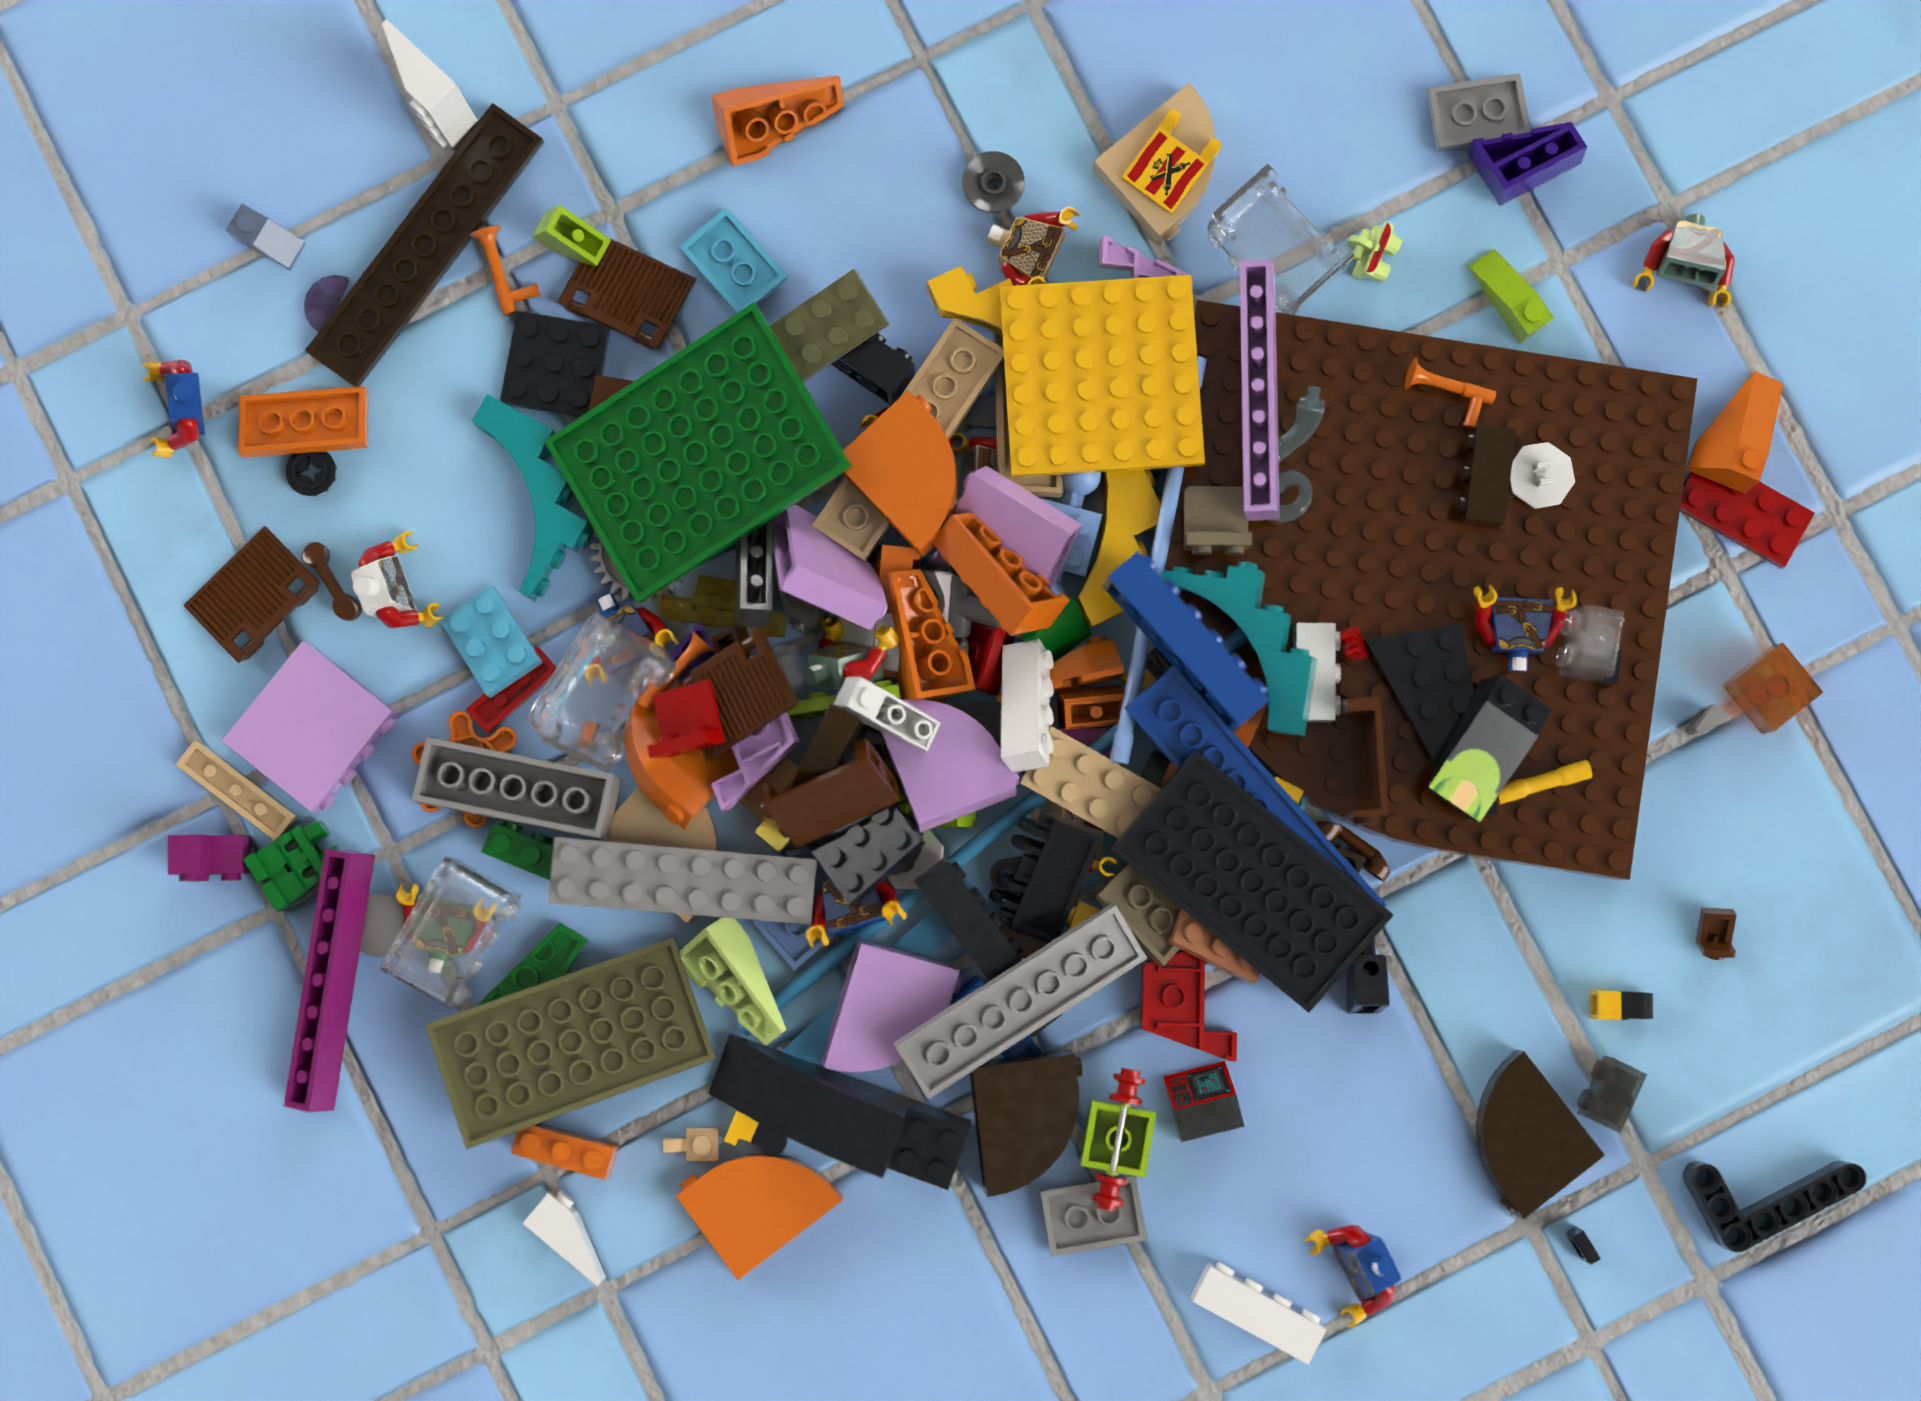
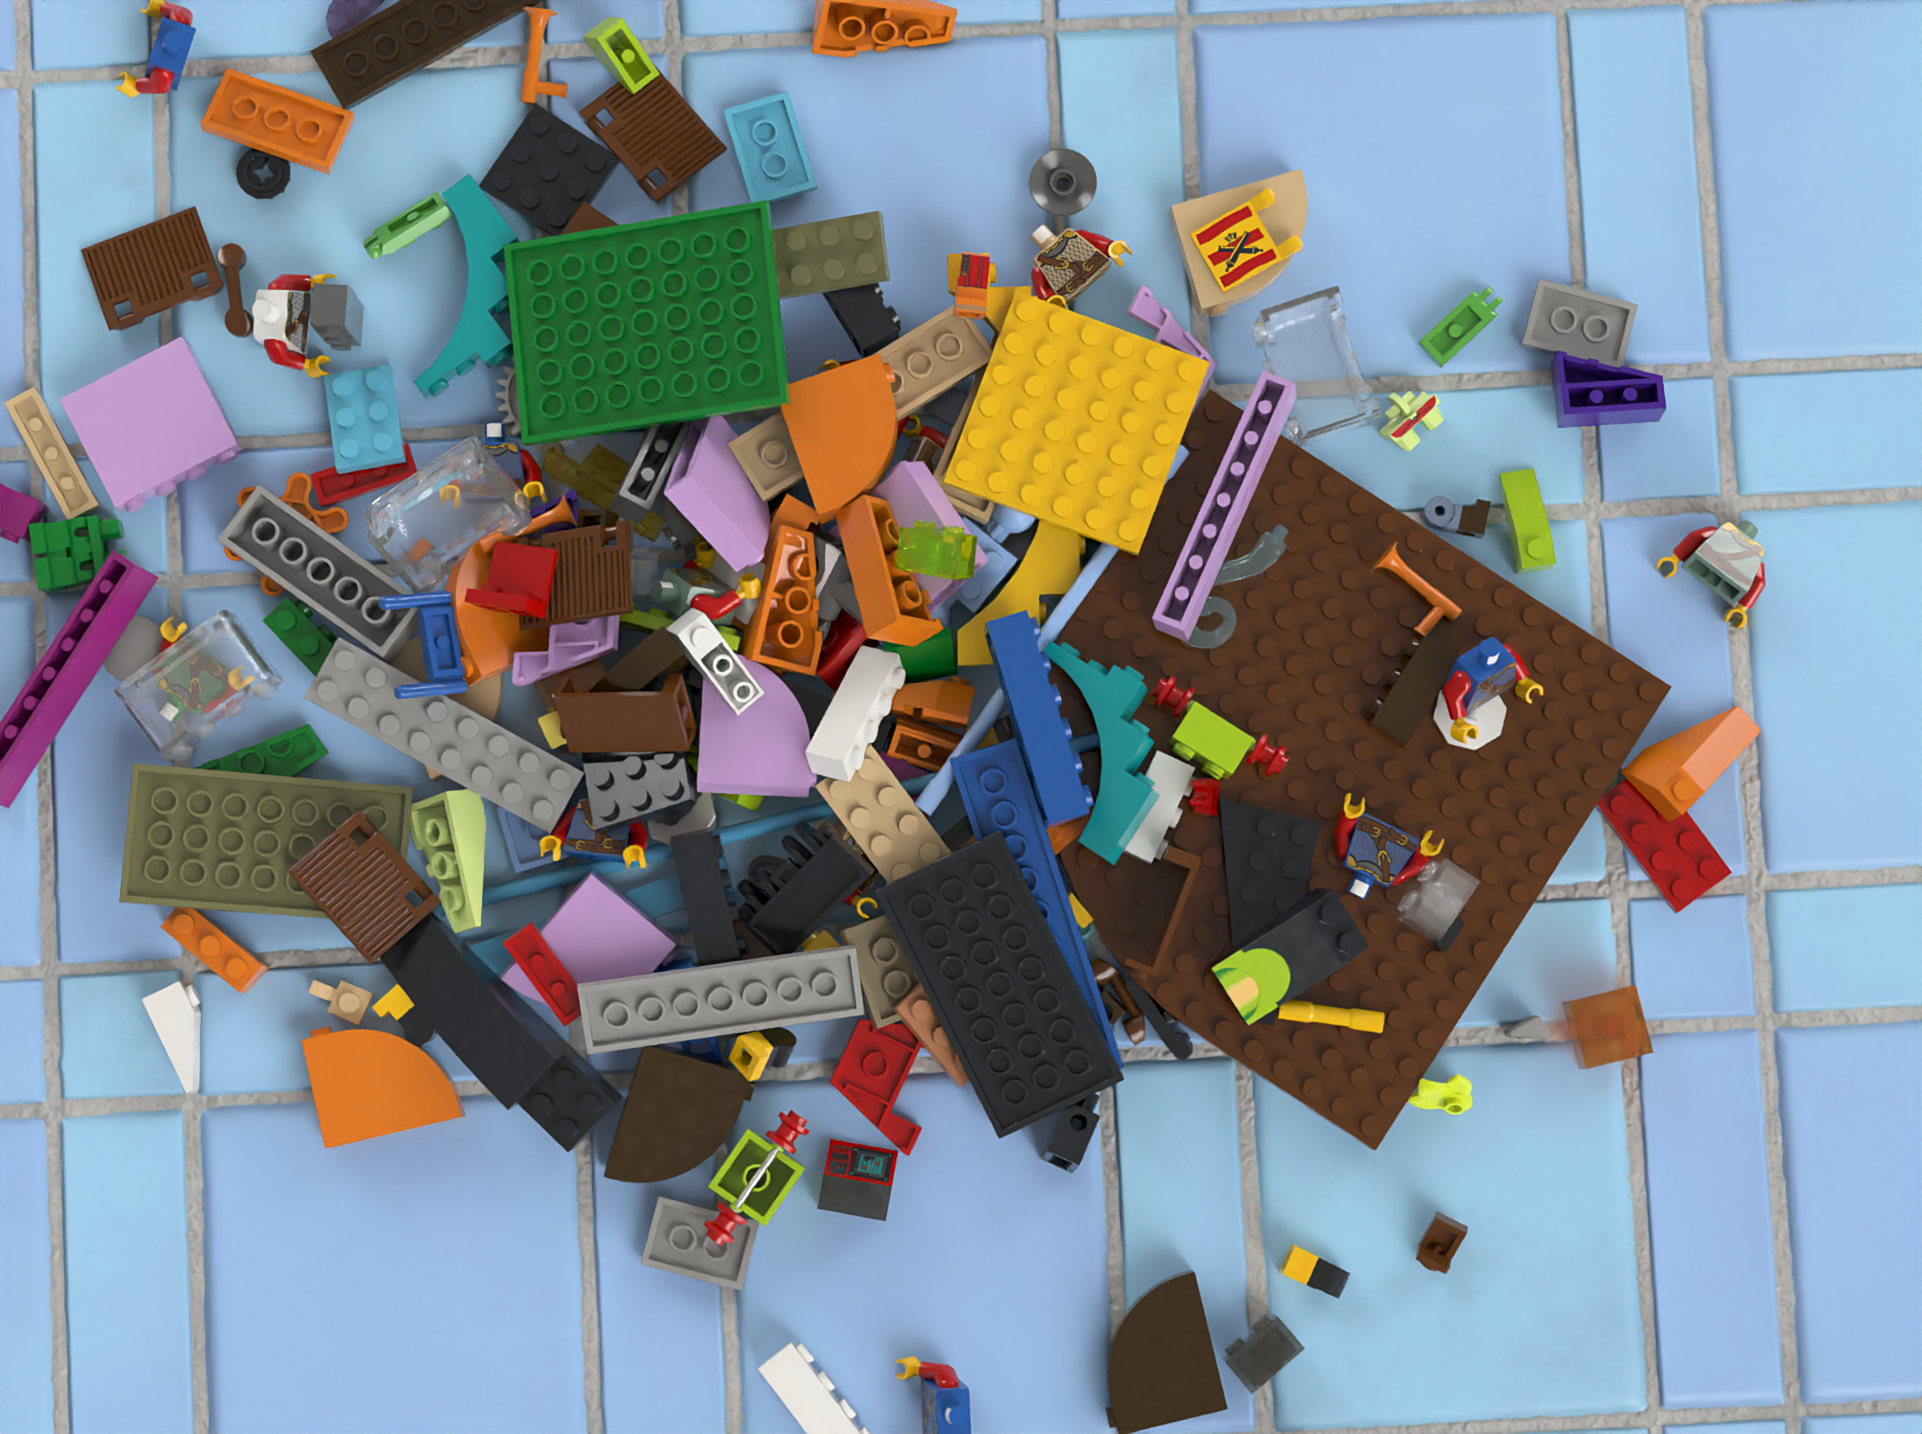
camera: 20 degrees right, 0 degrees up
(428, 563) = (337, 315): none -> dark grey brick
(454, 462) = (407, 226): none -> bright green hinge
(643, 805) = (438, 643): none -> blue plate
(670, 1041) = (363, 887): none -> reddish brown window
(860, 1044) = (545, 972): none -> red plate
(960, 299) = (972, 286): none -> leg
(1036, 535) = (936, 551): none -> clear neon green brick
(1073, 1028) = (763, 1050): none -> leg
(1215, 520) = (1124, 615): dark tan bracket -> none
(1338, 592) = (1213, 739): none -> lime brick
(1380, 157) = (1459, 327): none -> bright green hinge
(1399, 851) = (1162, 1022): none -> black hinge
(1441, 320) = (1455, 518): none -> leg
(1540, 441) = (1481, 677): none -> torso
(1669, 806) = (1450, 1096): none -> neon yellow plate

